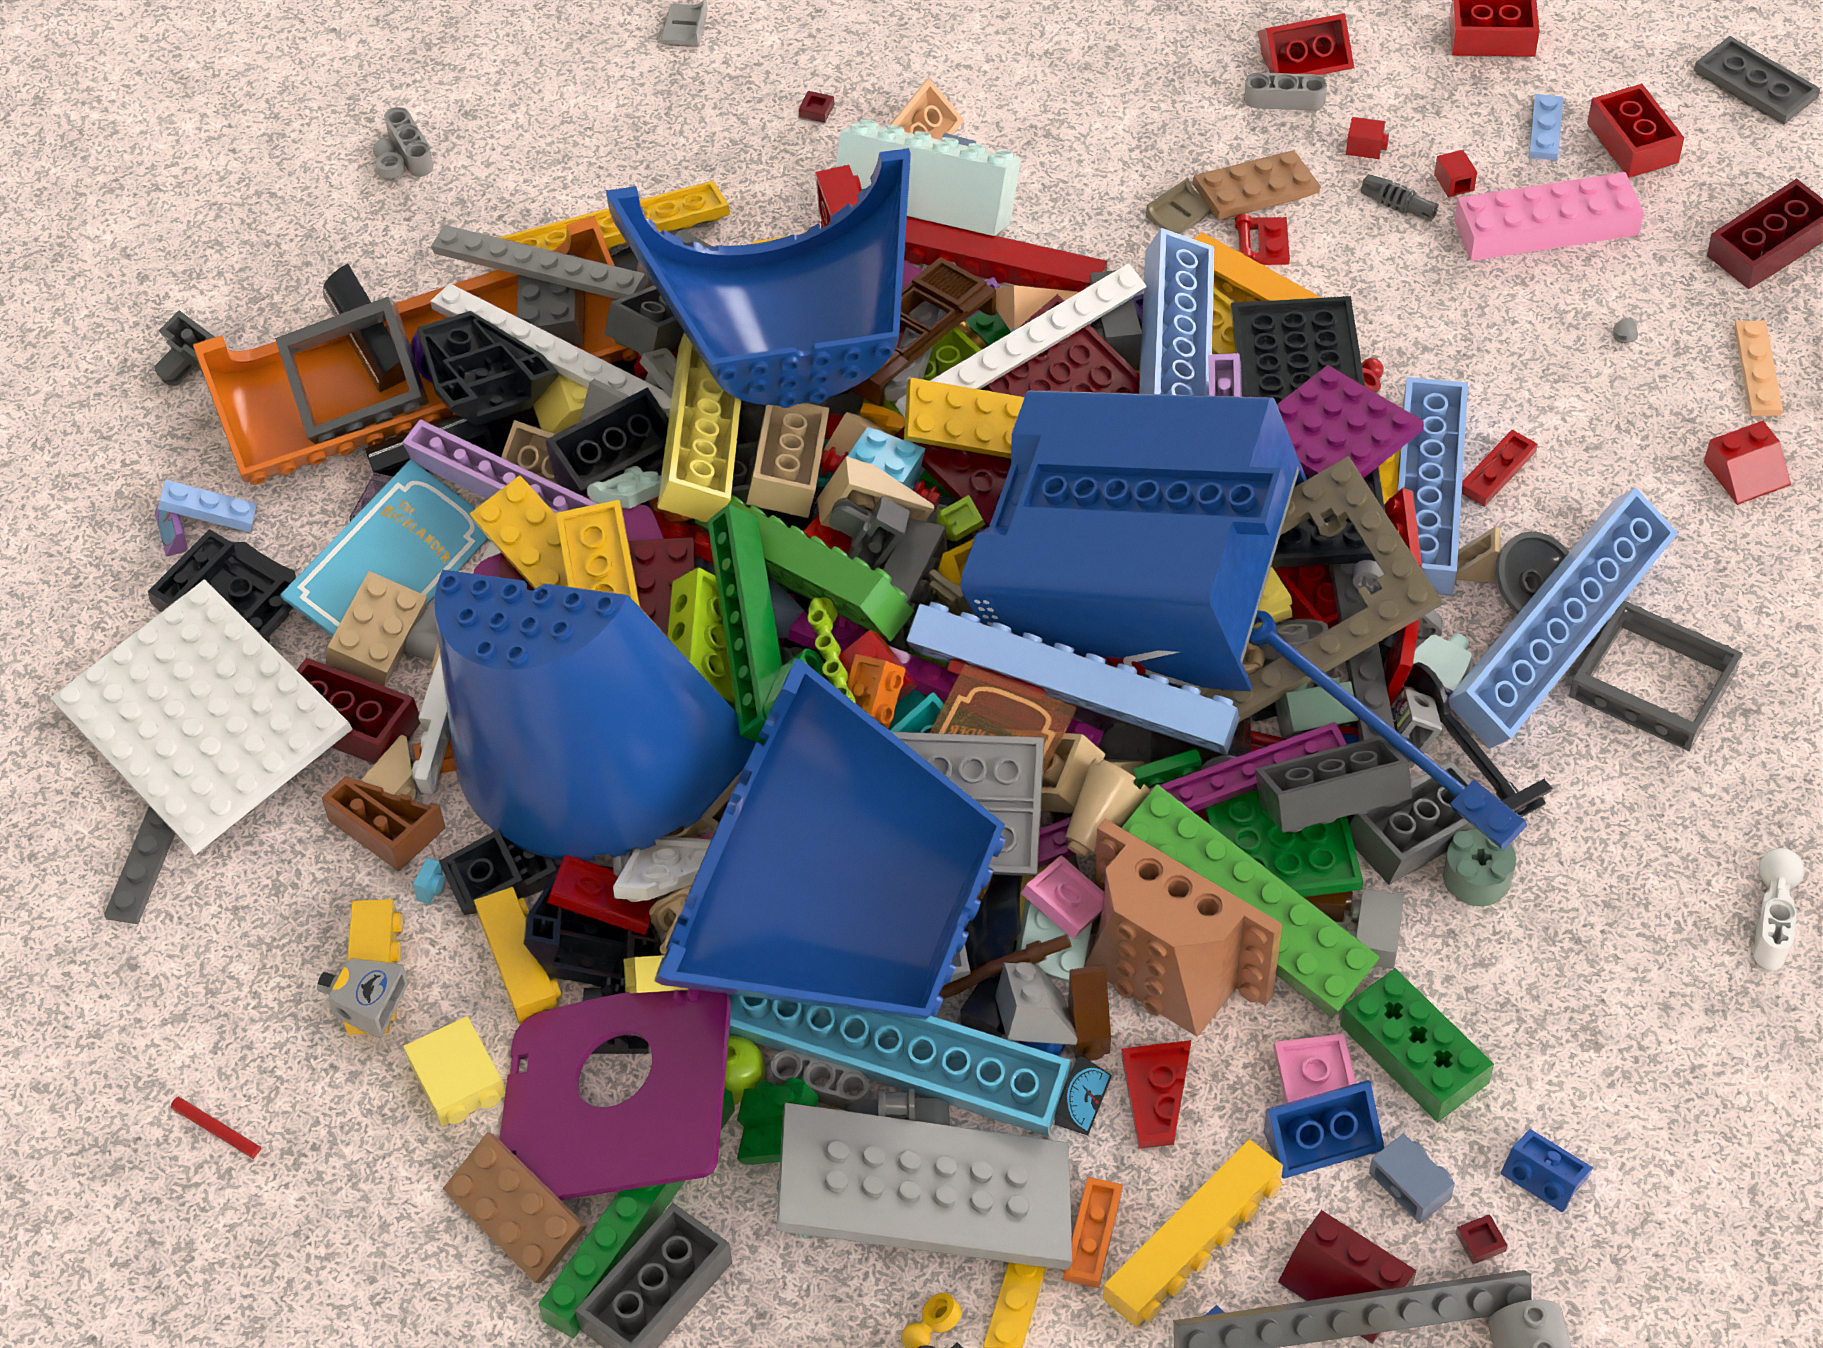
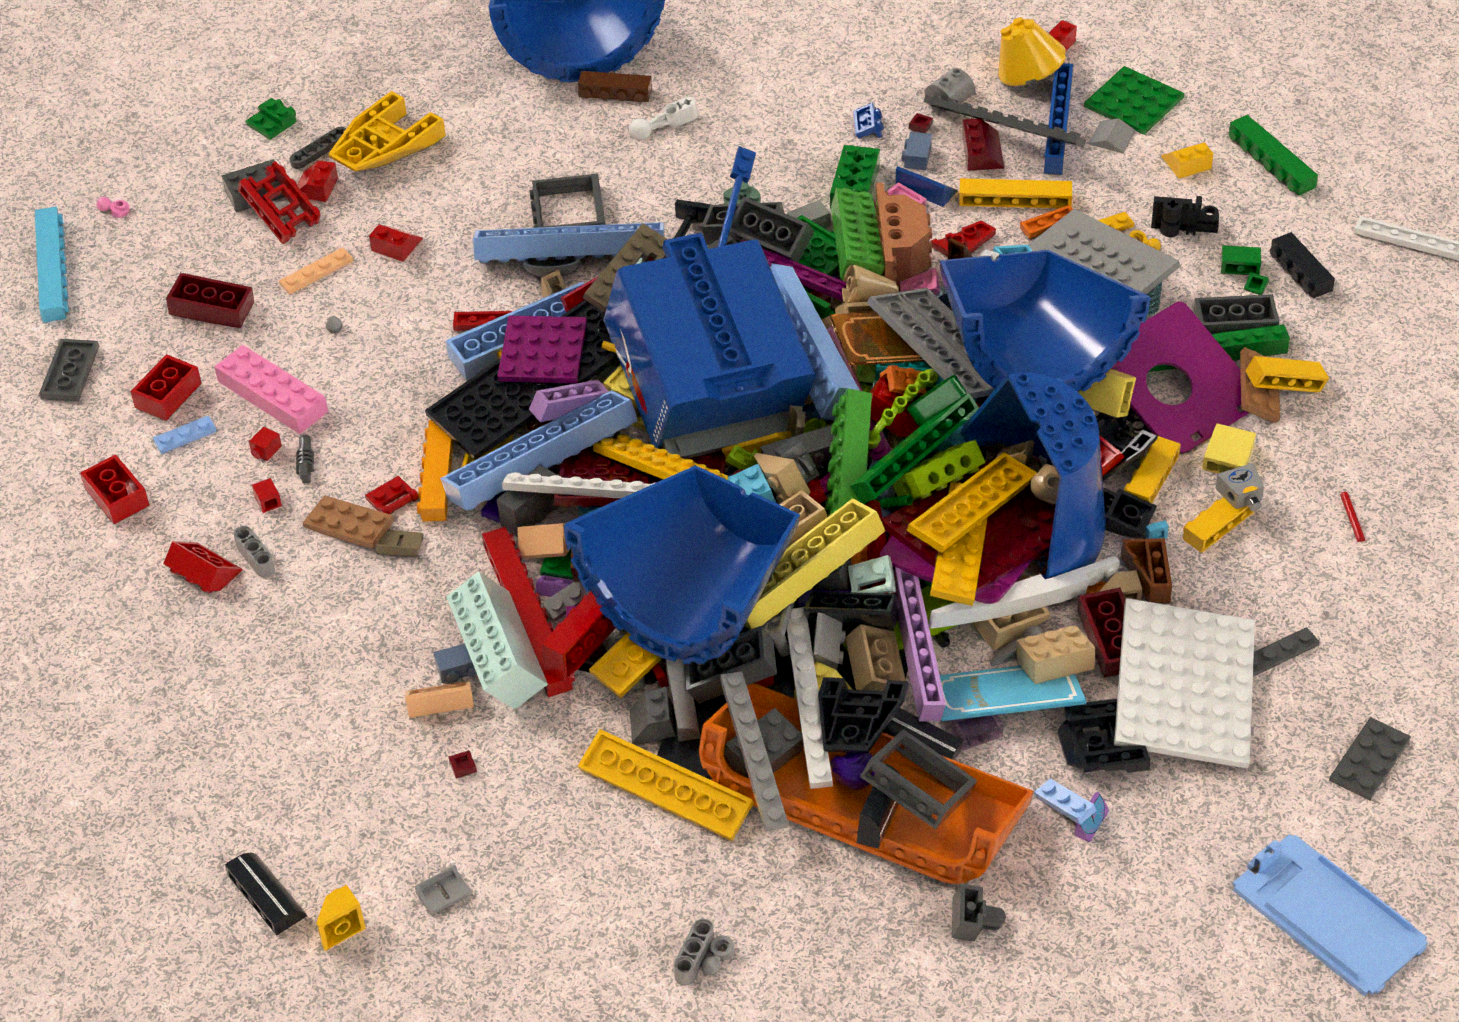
camera: 130 degrees left, 5 degrees down
(481, 1235) = (1287, 374): none -> yellow brick

